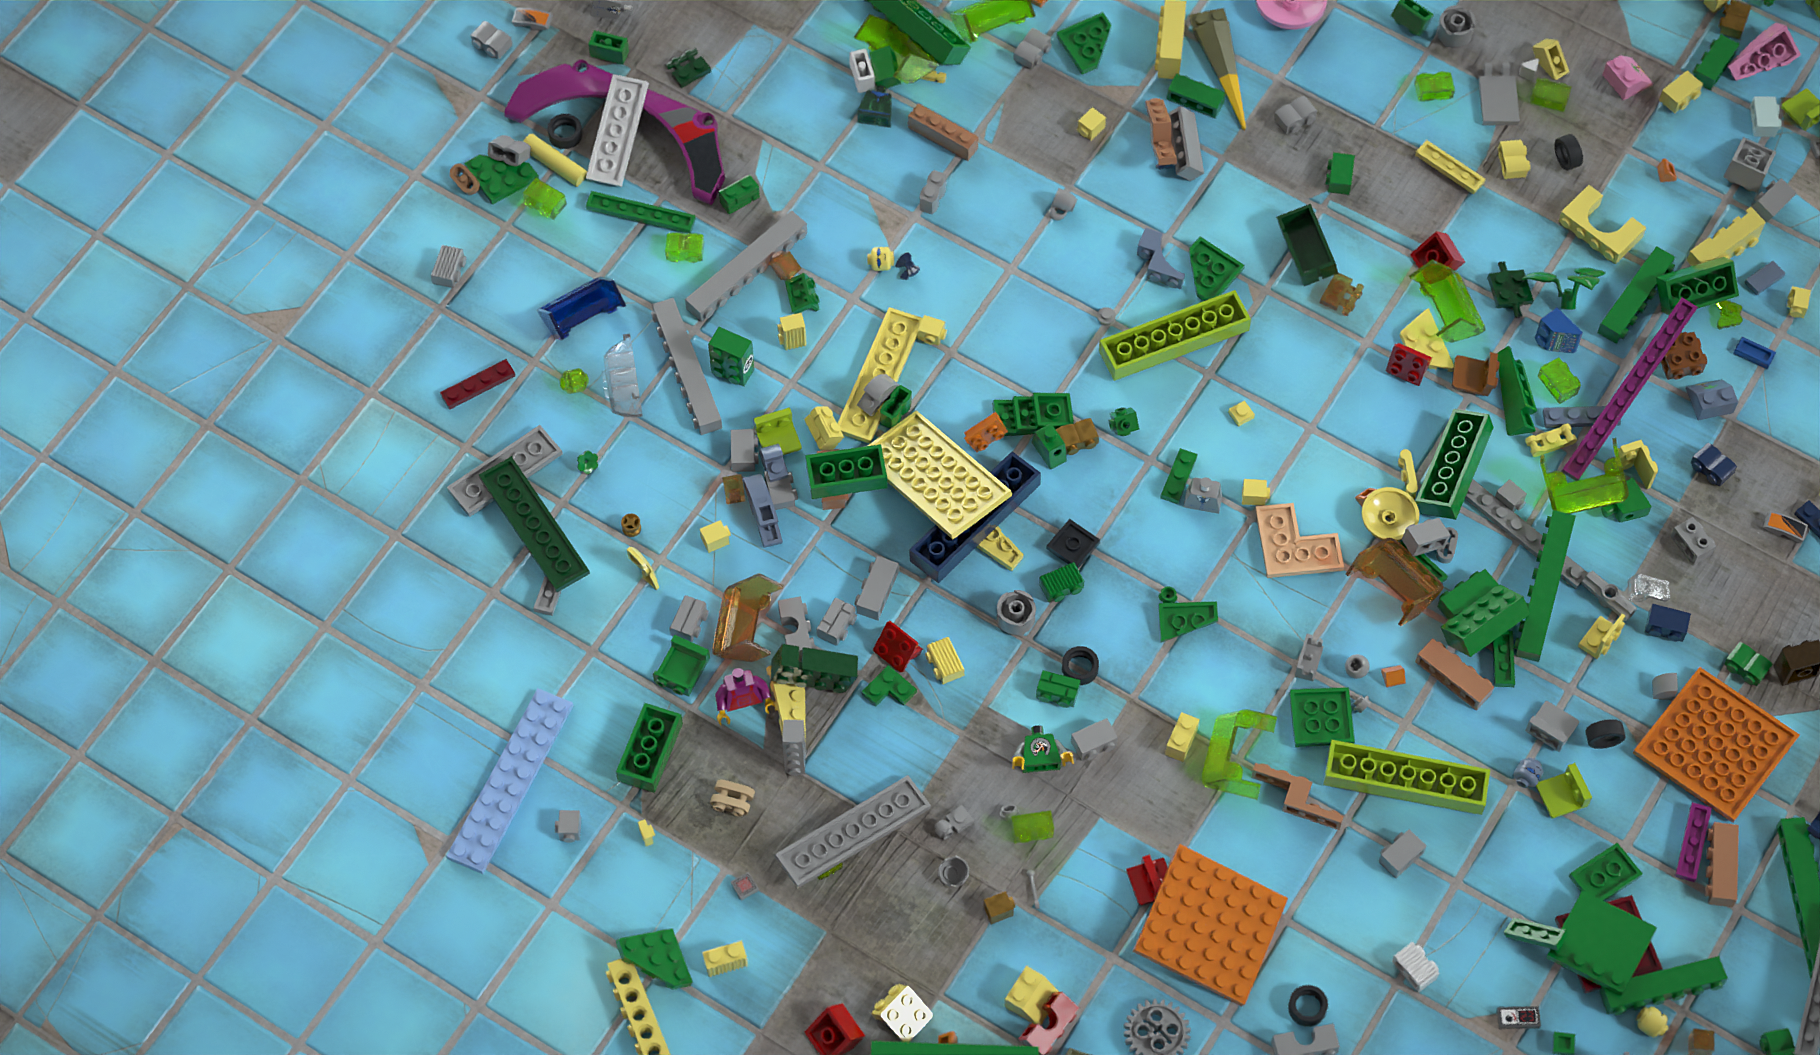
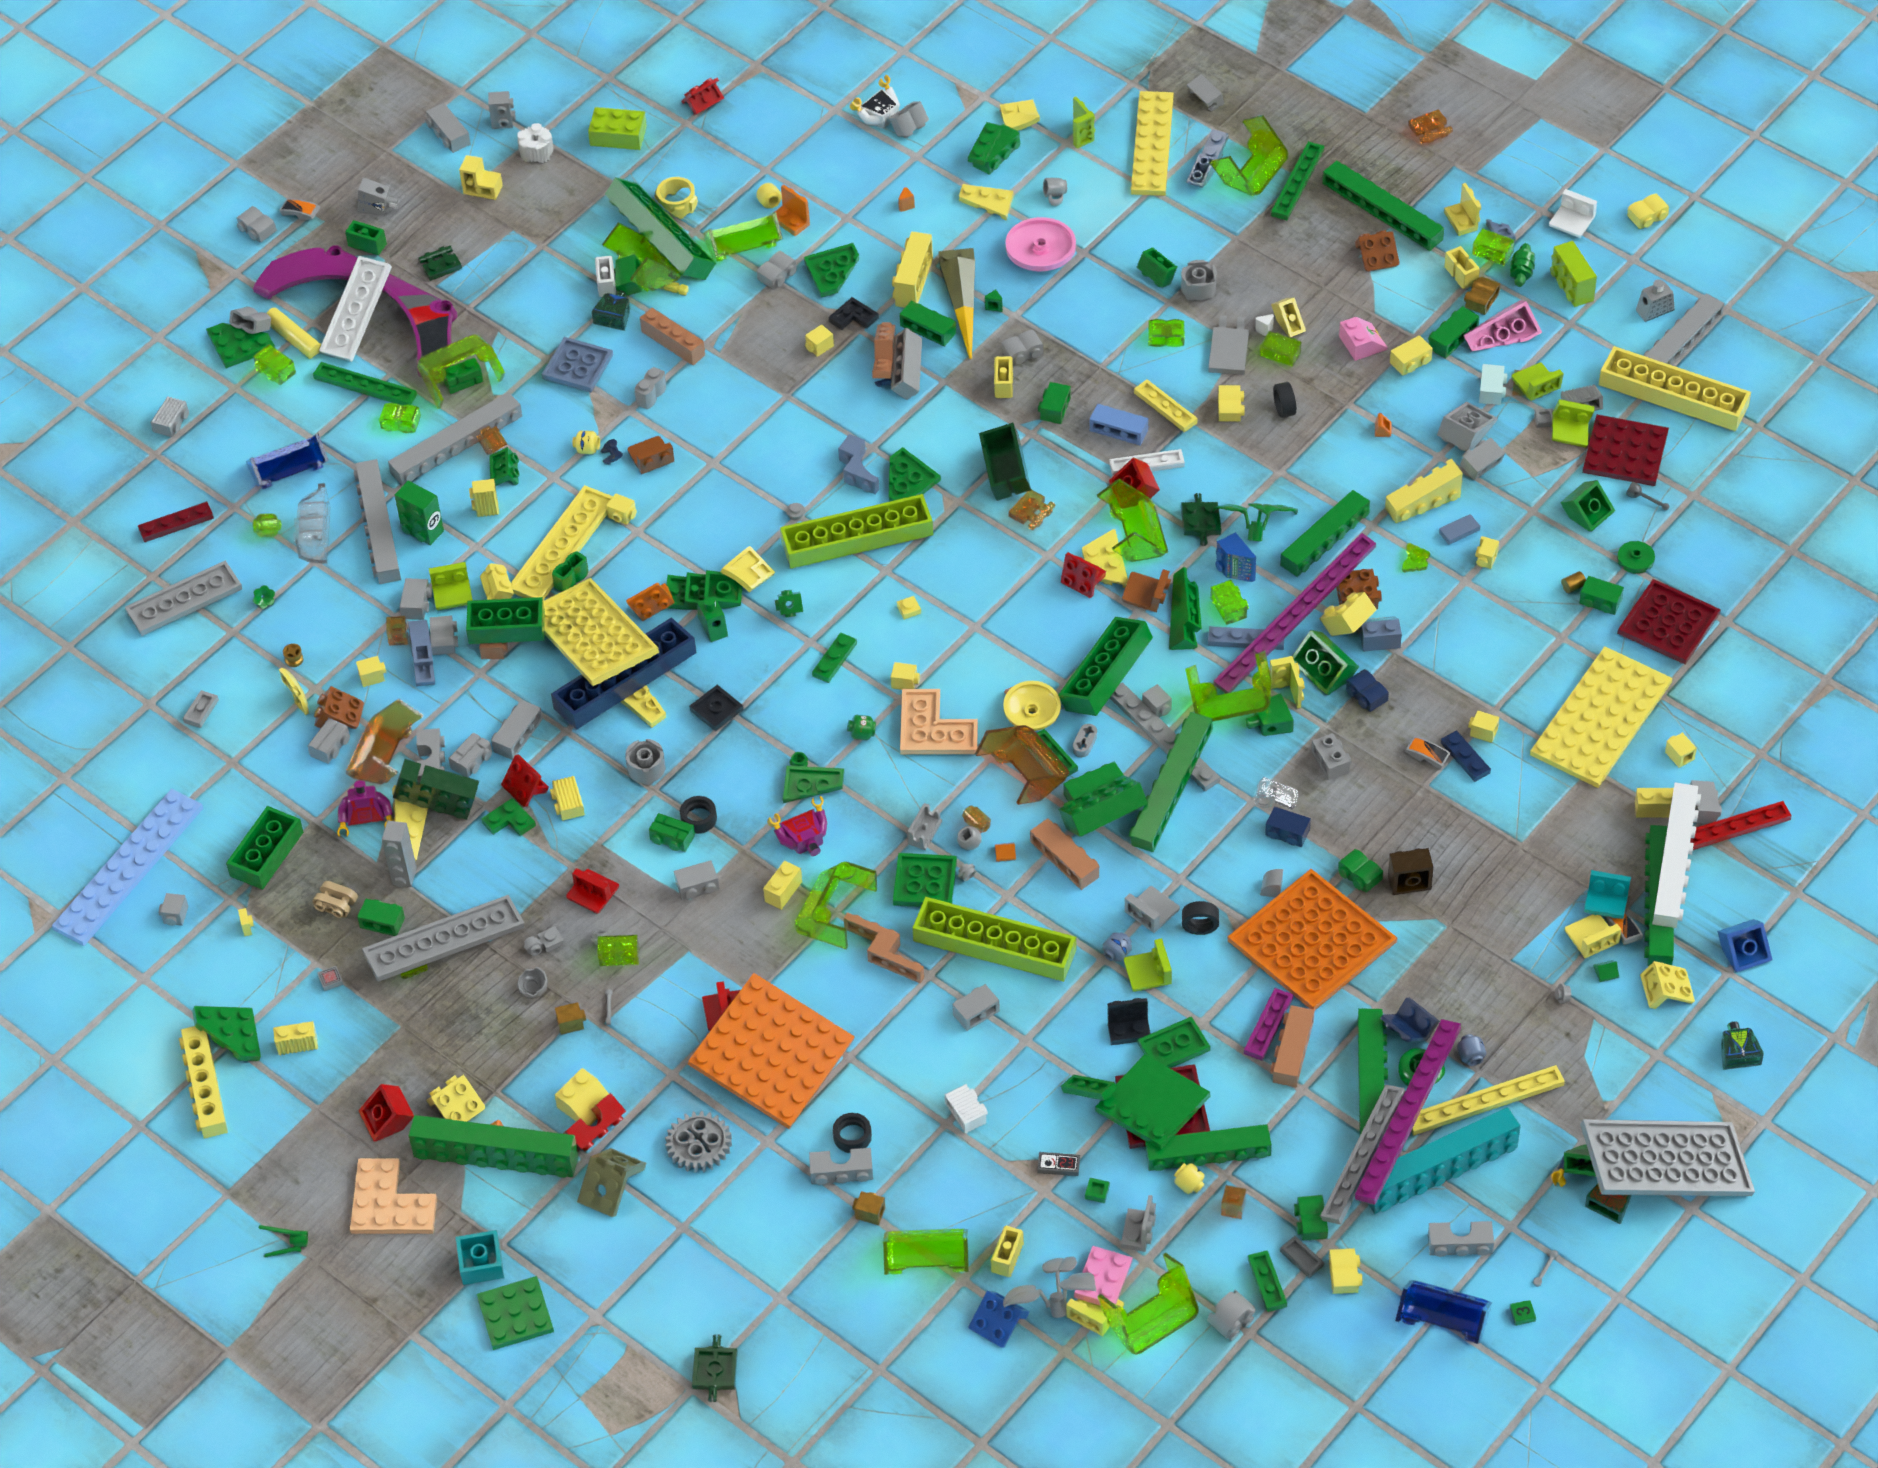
camera: 10 degrees right, 10 degrees down
(465, 179) = (203, 342): medium nougat plate -> none
(534, 524) = (199, 644): dark green plate -> none
(560, 120) = (311, 318): black tyre -> none
(682, 666) = (314, 781): green panel -> none
(691, 581) = (339, 707): none -> dark orange bracket
(712, 186) = (432, 365): none -> clear neon green windscreen
(773, 462) = (439, 609): sand blue brick -> none
(783, 812) = (381, 917): none -> green brick
(852, 171) = (577, 364): none -> sand blue plate
(876, 392) = (552, 554): light grey brick -> none
(948, 265) = (651, 454): none -> dark orange bracket
(990, 761) = (591, 890): none -> red bracket
(1040, 753) = (640, 887): torso -> none
(1061, 583) = (696, 740): green brick -> none
(1063, 201) = (776, 406): light grey piece -> none
(1074, 387) = (748, 569): none -> light yellow plate
(1079, 436) = (742, 613): pearl gold brick -> none
(1117, 88) = (852, 311): none -> black plate
(1191, 674) = (803, 831): none -> magenta torso
(1203, 495) = (853, 674): light grey torso -> none
(1224, 553) = (861, 727): none -> green head
(1257, 66) = (994, 301): none -> green slope
(1285, 150) = (1003, 377): none -> light yellow brick
(1359, 643) = (975, 817): none -> clear orange brick
(1408, 473) = (1059, 671): light yellow plate -> none
(1409, 192) = (1119, 424): none -> medium blue brick
(1425, 536) = (1061, 727): light grey brick -> none
(1454, 228) = (1156, 461): none -> white tile
(1504, 660) = (1117, 845): green plate -> none
(1551, 440) = (1210, 656): light yellow plate -> none
(1557, 856) = (1127, 1020): none -> black bracket
(1599, 588) = (1234, 798): light grey piece -> none
(1601, 635) = (1220, 832): light yellow bracket -> none
(1611, 245) = (1310, 486): light yellow arch -> none
(1665, 437) = (1324, 662): none -> green slope
(1683, 388) = (1348, 616): none -> light yellow brick
(1698, 284) = (1388, 526): green brick -> none
(1754, 352) = (1433, 595): blue tile -> none

